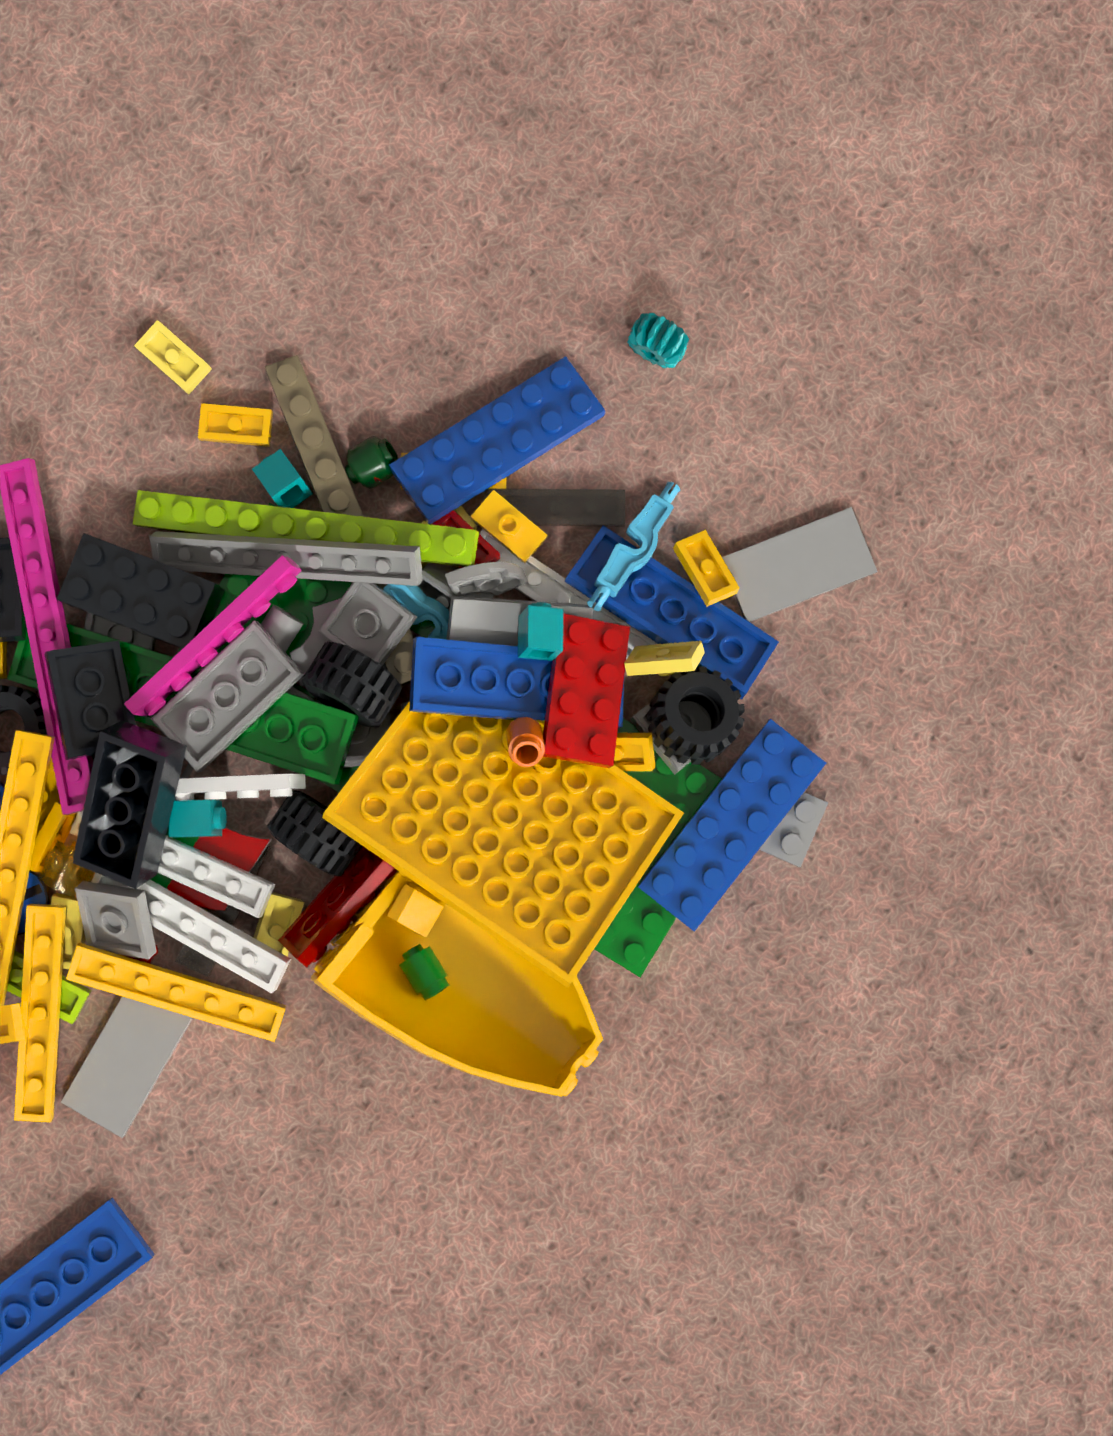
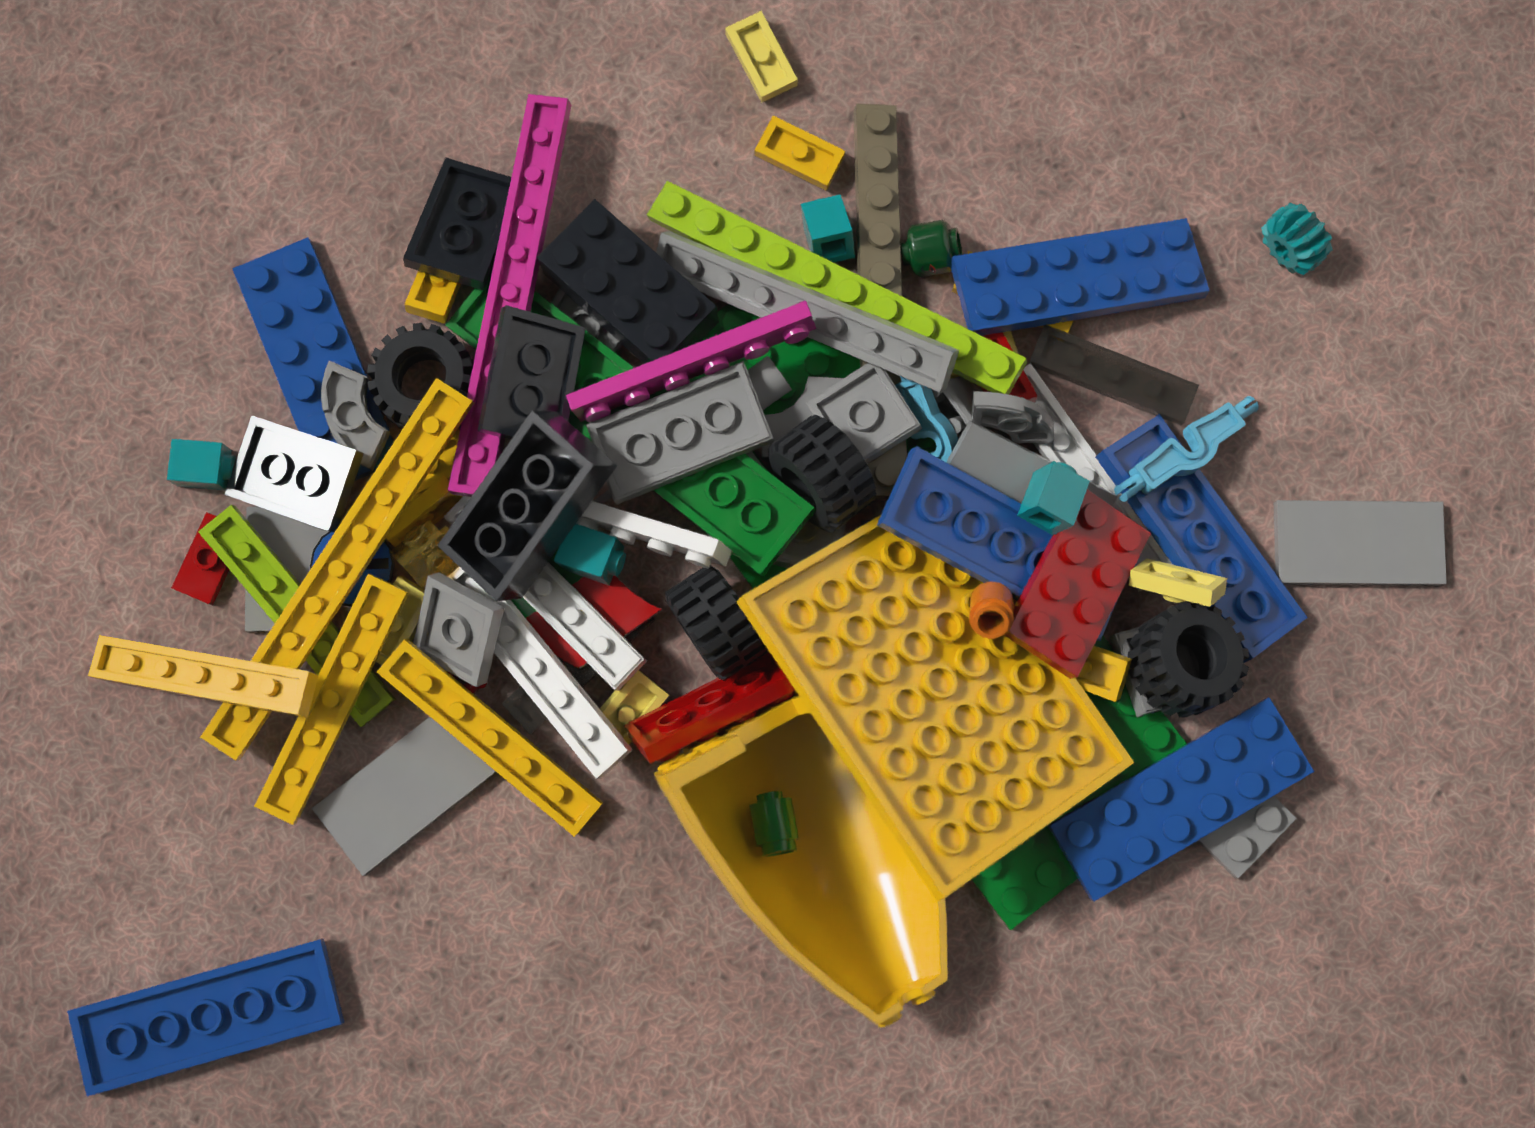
camera: 25 degrees right, 5 degrees down
(415, 910) = (791, 751): yellow tile -> none
(509, 526) = (1056, 374): yellow plate -> none
(706, 568) = (1256, 504): yellow plate -> none

